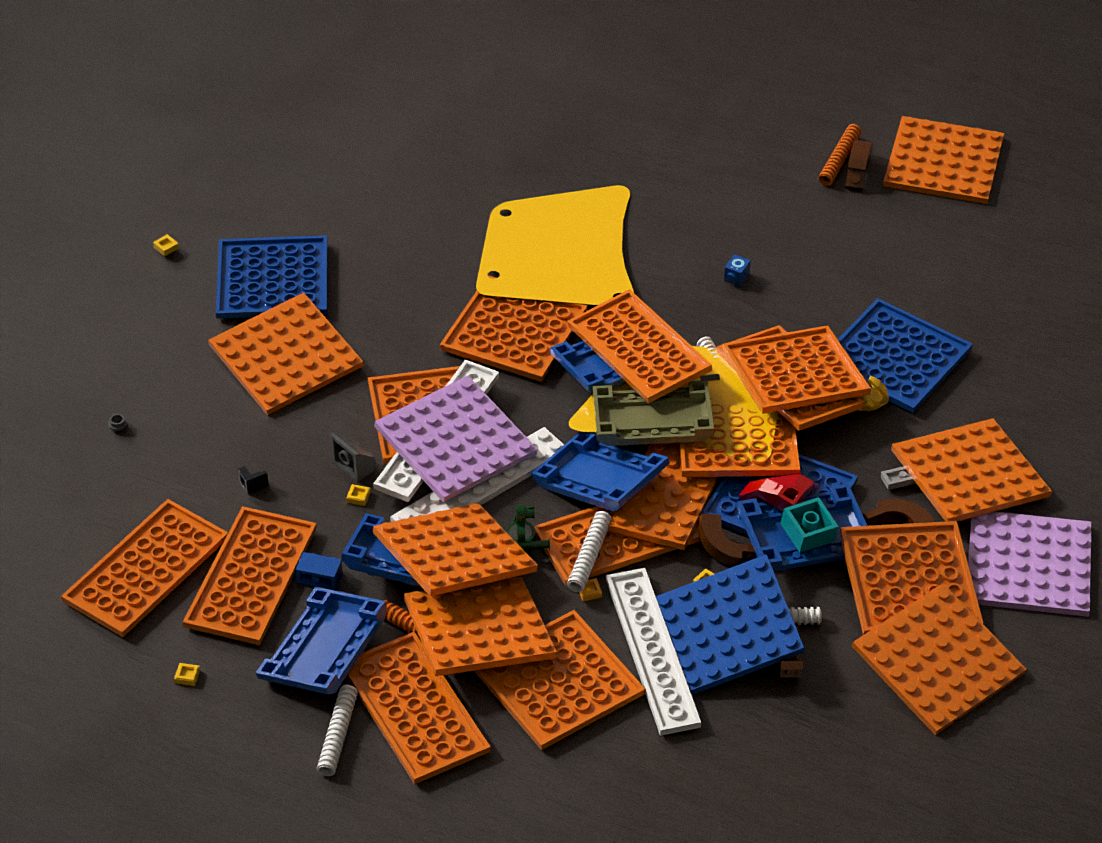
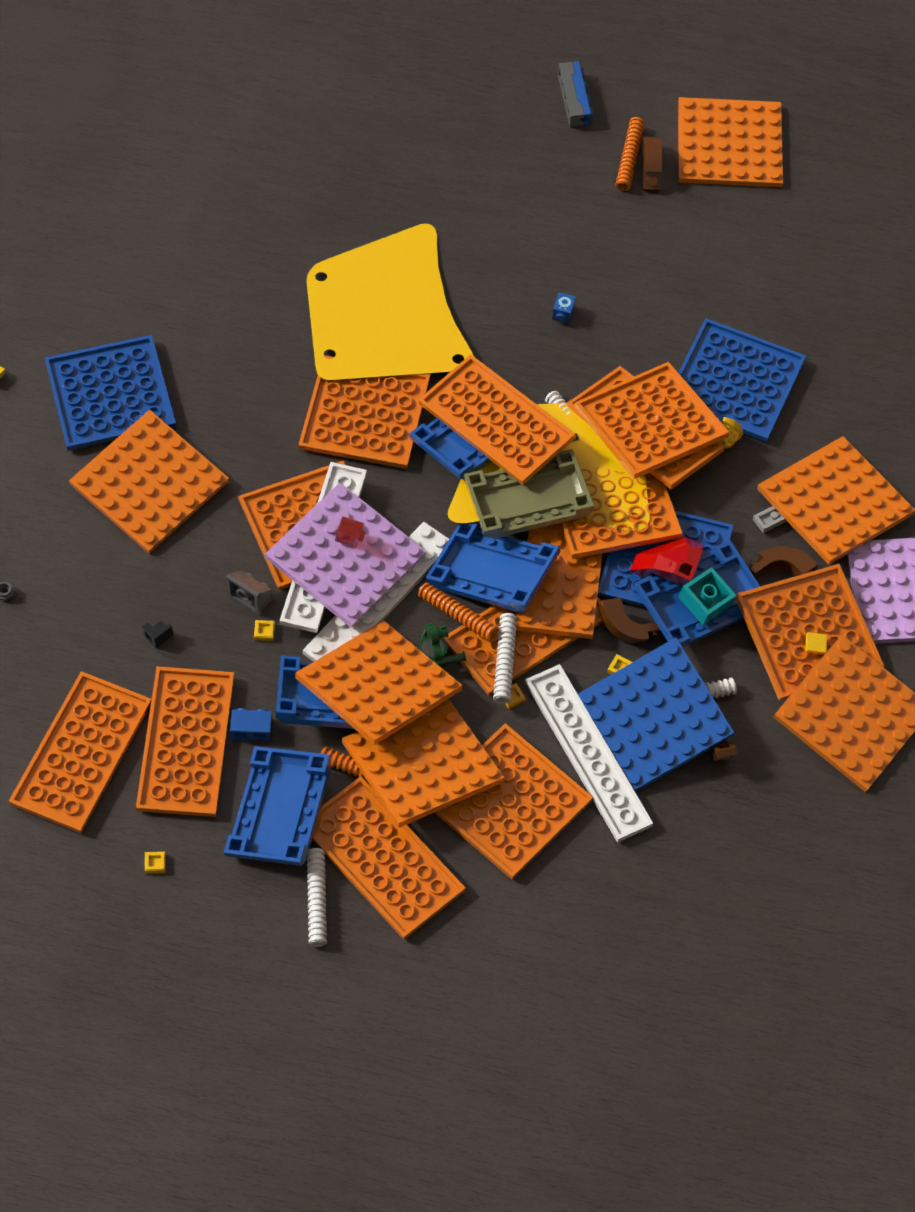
camera: 15 degrees left, 15 degrees up
(463, 415) = (350, 532): none -> clear red brick
(554, 505) = (458, 612): none -> orange piece
(799, 99) = (574, 94): none -> piece
(913, 587) = (816, 643): none -> yellow tile

